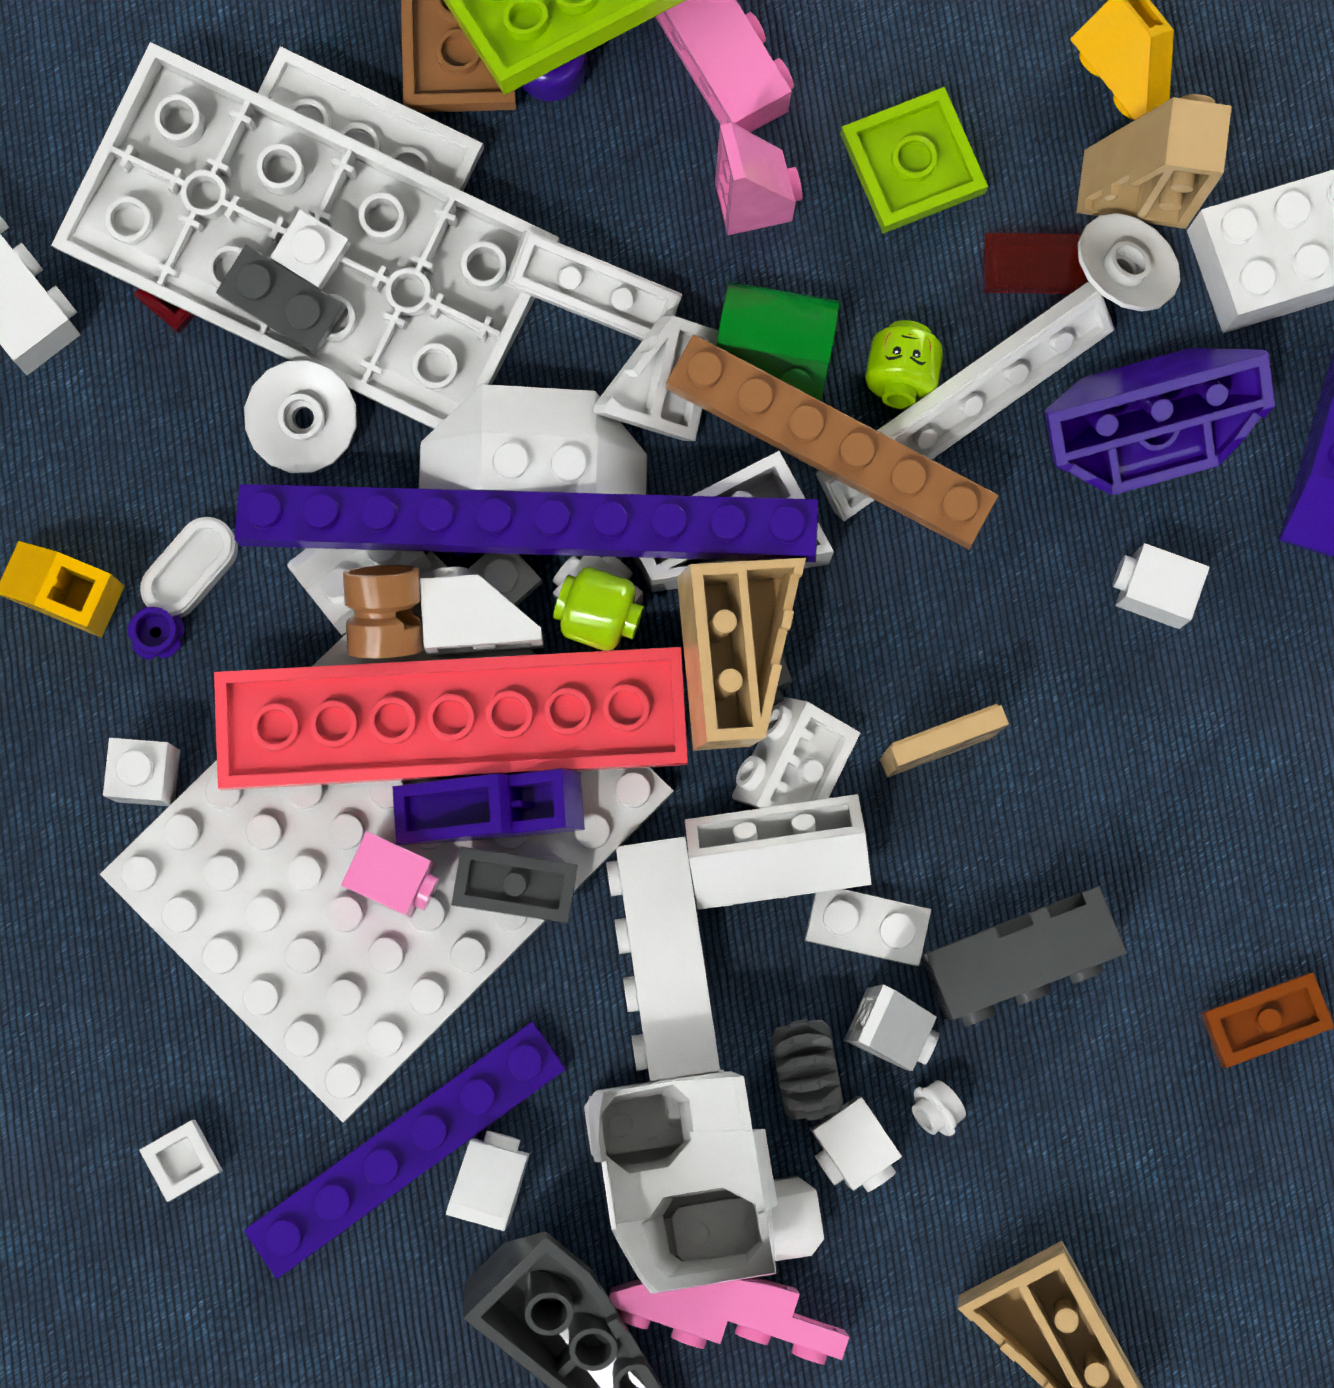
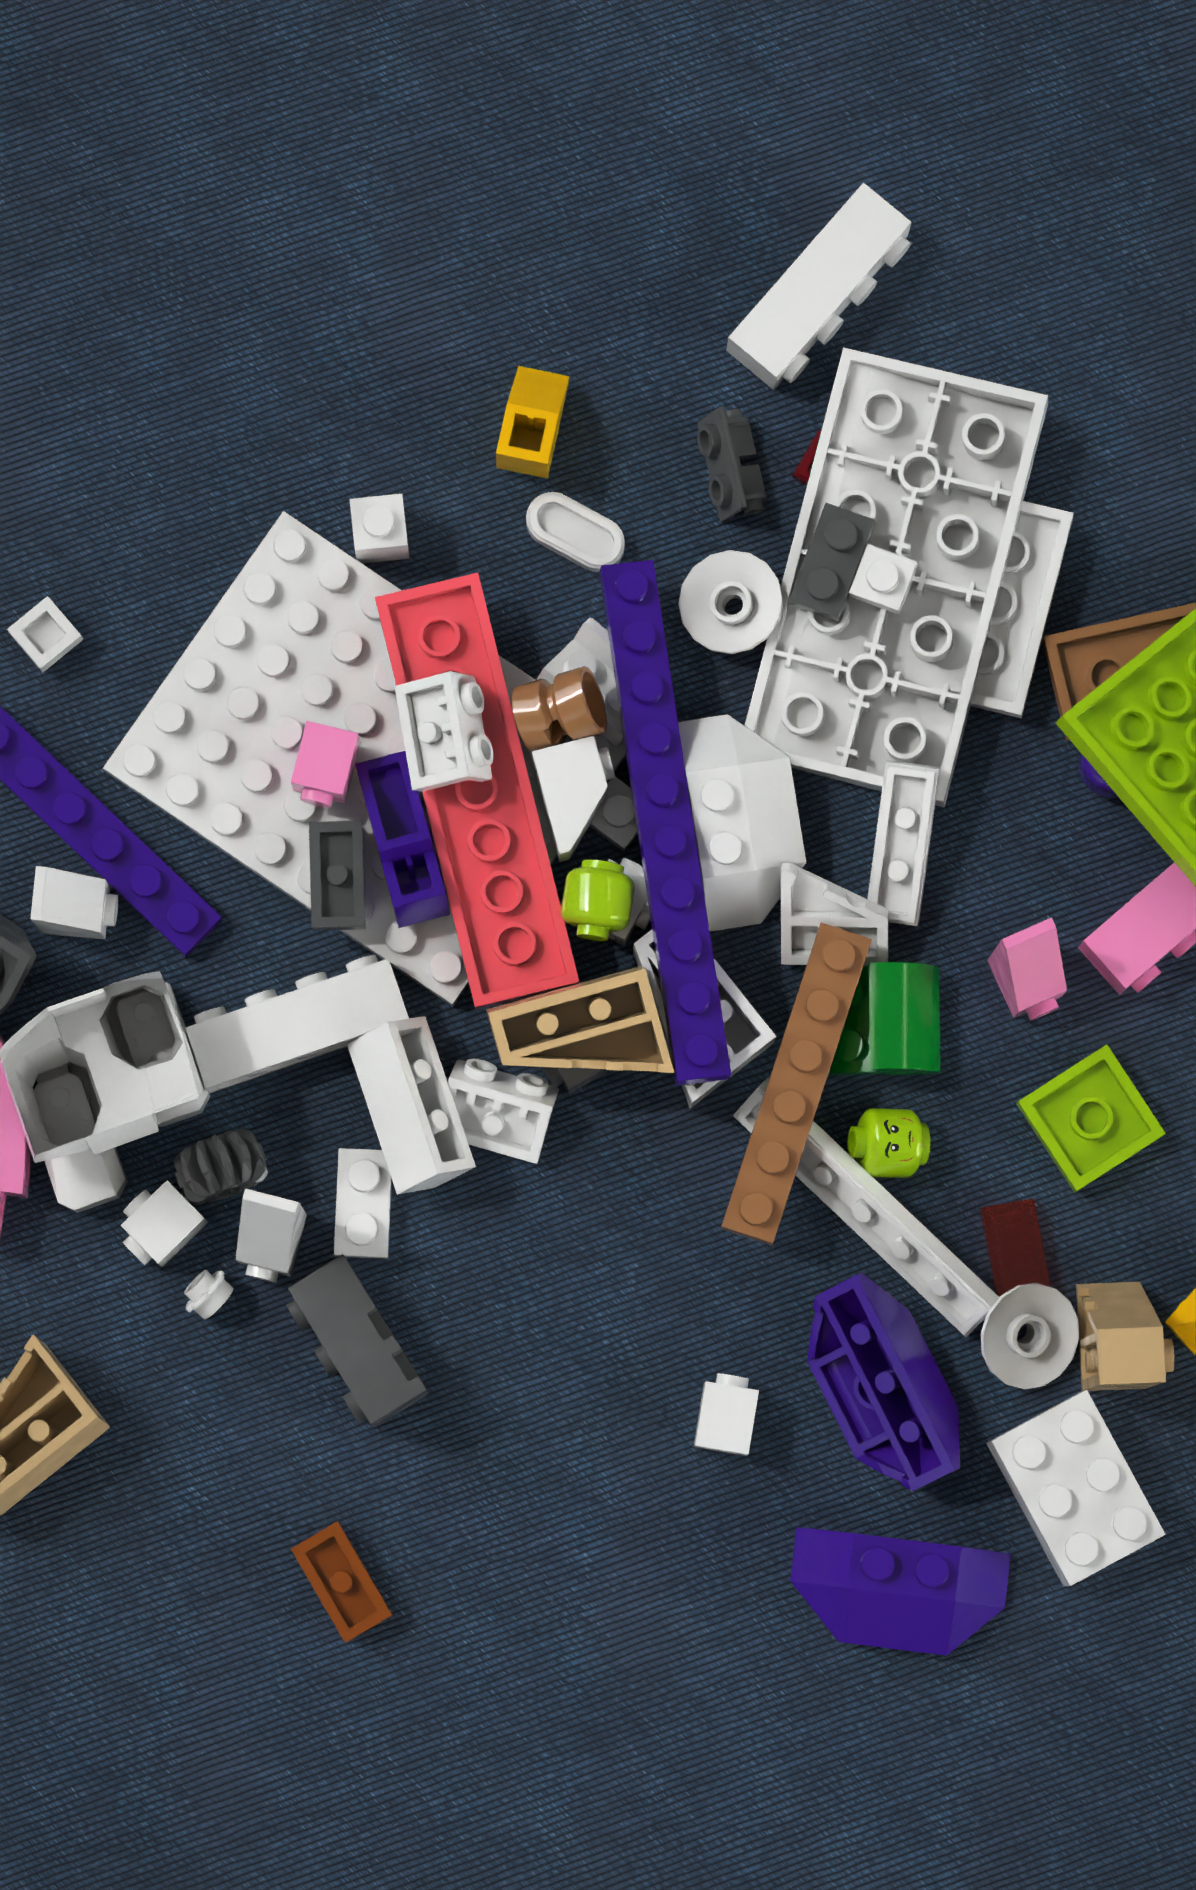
camera: 80 degrees right, 0 degrees up
(126, 394) = (724, 440): none -> dark grey hinge
(140, 633) = (507, 501): dark purple plate -> none
(382, 738) = (444, 730): none -> white bracket
(943, 740) = (539, 1234): tan tile -> none

